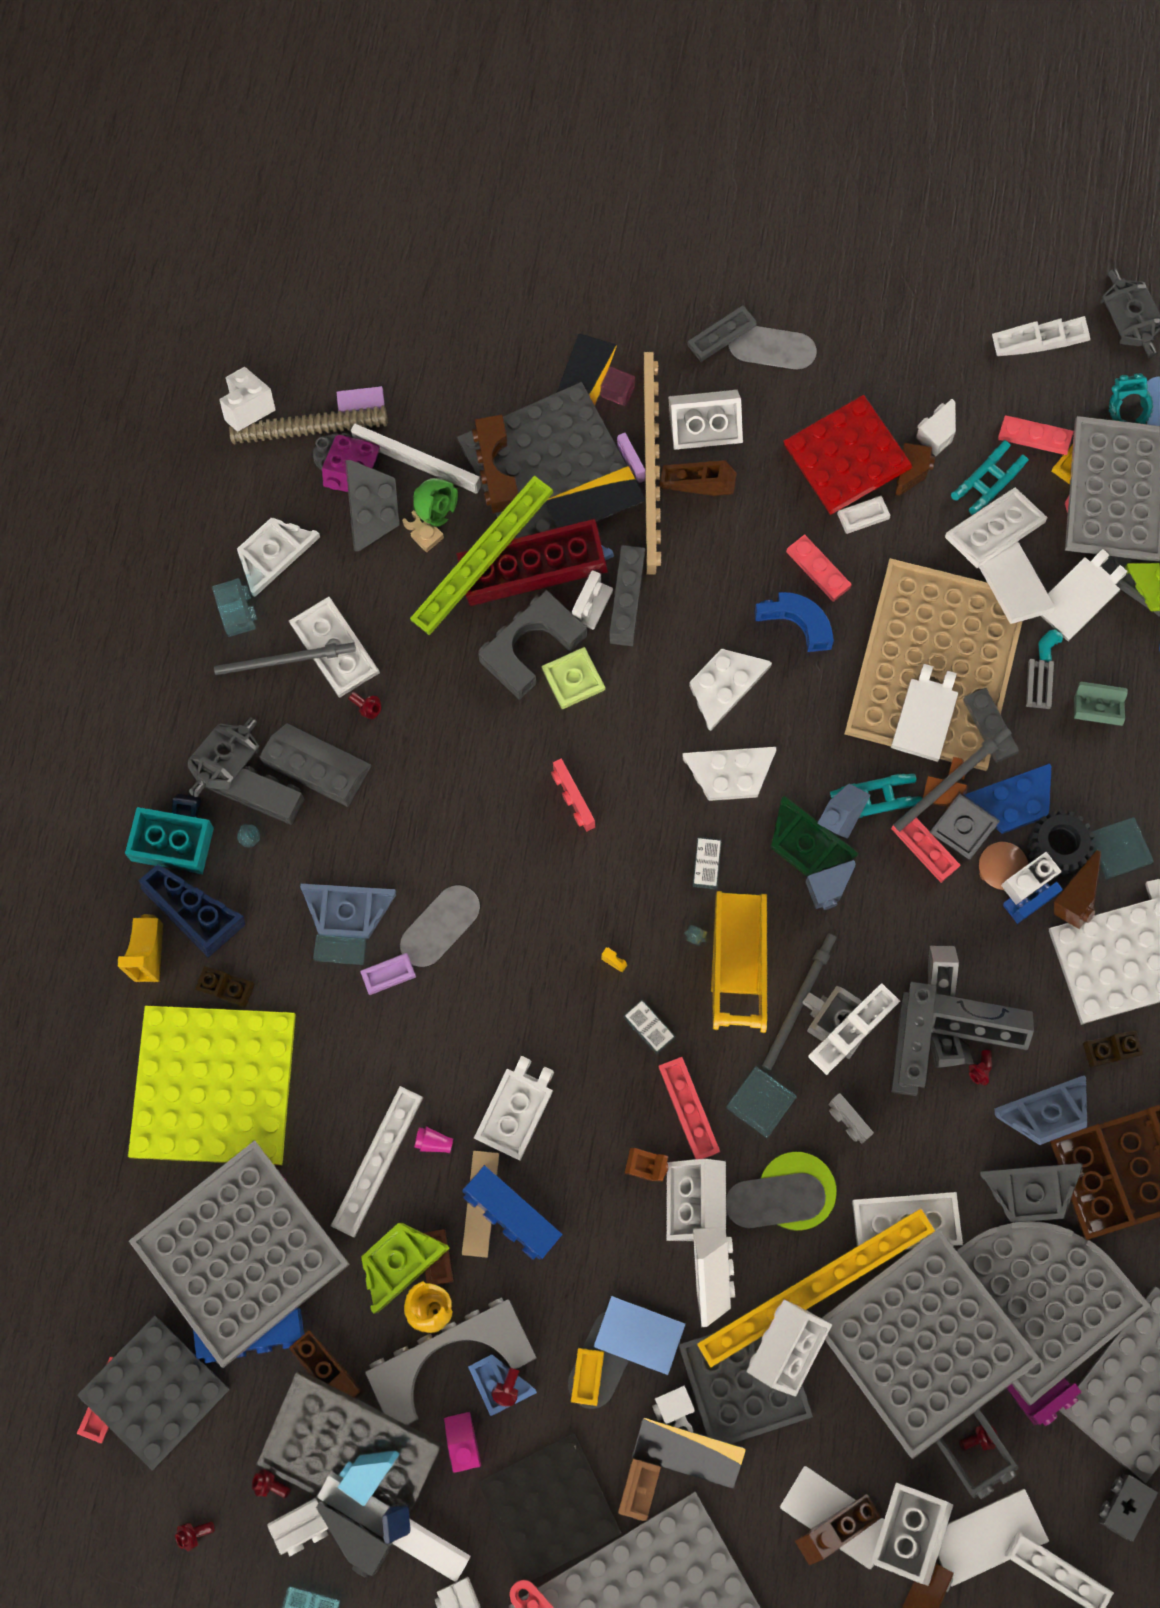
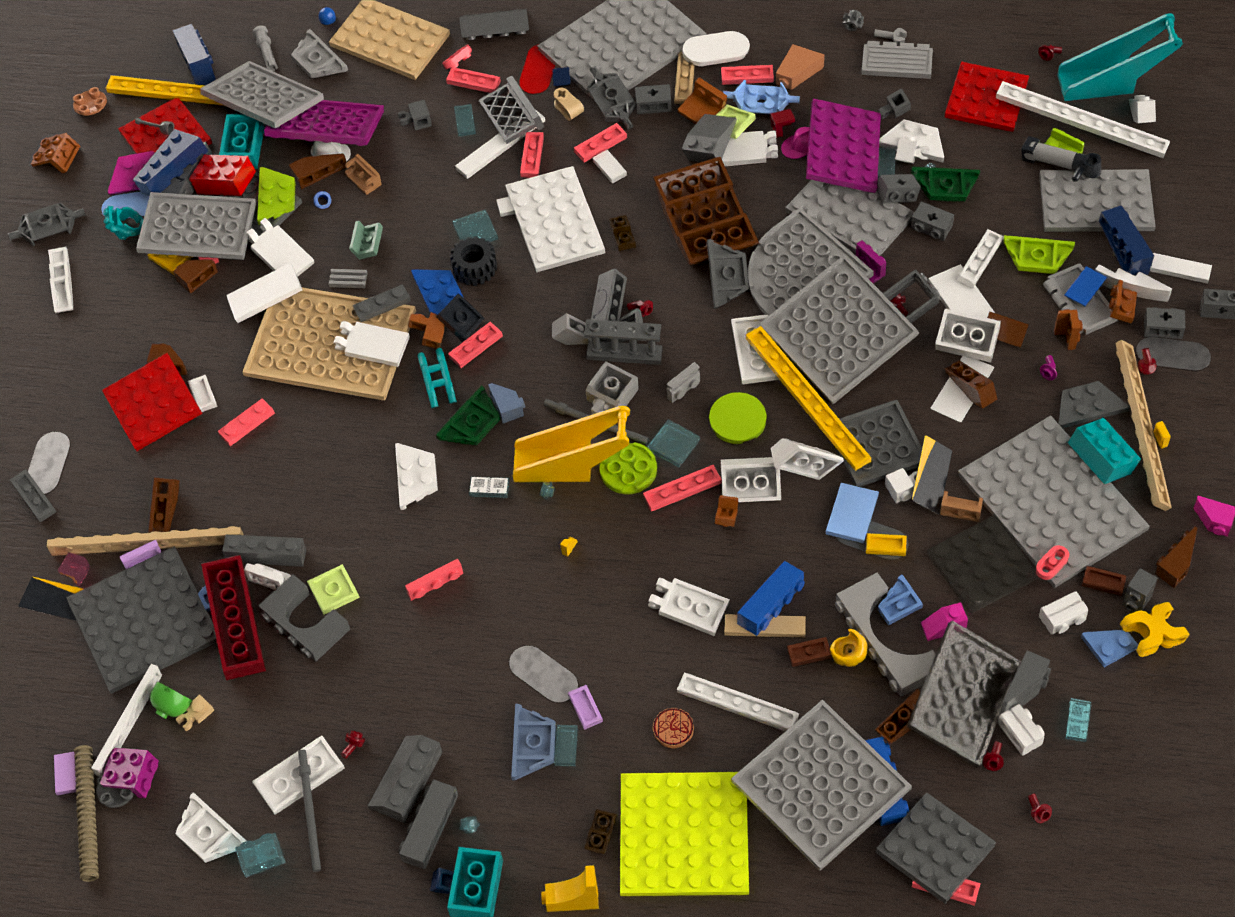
camera: 90 degrees left, 15 degrees down
(198, 916) = (536, 861): dark blue wedge -> none
(219, 770) = (408, 853): dark grey plate -> none
(247, 399) = (58, 858): white brick -> none
(350, 1079) = (673, 728): none -> tile
(366, 1474) = (977, 671): medium azure slope -> none
(371, 503) = (170, 748): dark grey wing -> none
(396, 1523) = (1010, 652): dark blue slope -> none
(397, 1262) = (815, 675): lime wing -> none
(419, 1542) = (1011, 659): white tile -> none
(432, 1141) = (719, 664): dark pink cone -> none
(481, 555) = (228, 647): lime plate -> none
(492, 438) = (164, 646): reddish brown arch -> none
(505, 1393) = (905, 588): dark red plate -> none
(596, 498) = (178, 578): black sticker -> none
(649, 1026) = (620, 519): white tile -> none
(706, 419) = (110, 503): white slope -> none
(725, 682) = (341, 482): white wing -> none
(730, 1049) = (629, 469): none -> lime tile
(775, 1200) = (746, 429): flat silver sticker -> none
(789, 1348) = (851, 408): white slope -> none
(803, 613) = (286, 426): blue arch -> none
(844, 810) = (449, 391): sand blue slope -> none
(854, 1028) = (619, 374): white slope -> none
(939, 429) = (134, 342): white slope -> none
(989, 466) = (178, 302): teal piece -> none
(989, 746) = (403, 293): dark grey bar -> none
(995, 527) = (221, 304): white tile -> none
(1000, 863) = (489, 298): nougat dish -> none
(1031, 878) = (501, 275): white slope -> none
(1032, 902) = (515, 277): blue bracket -> none
(1036, 435) = (144, 282): coral plate -> none
(1046, 492) = (194, 273): none -> reddish brown slope
(1047, 642) = (316, 274): teal arm -> none
(1048, 1112) = (671, 265): sand blue wing -> none
(1078, 899) = (513, 246): reddish brown slope -> none

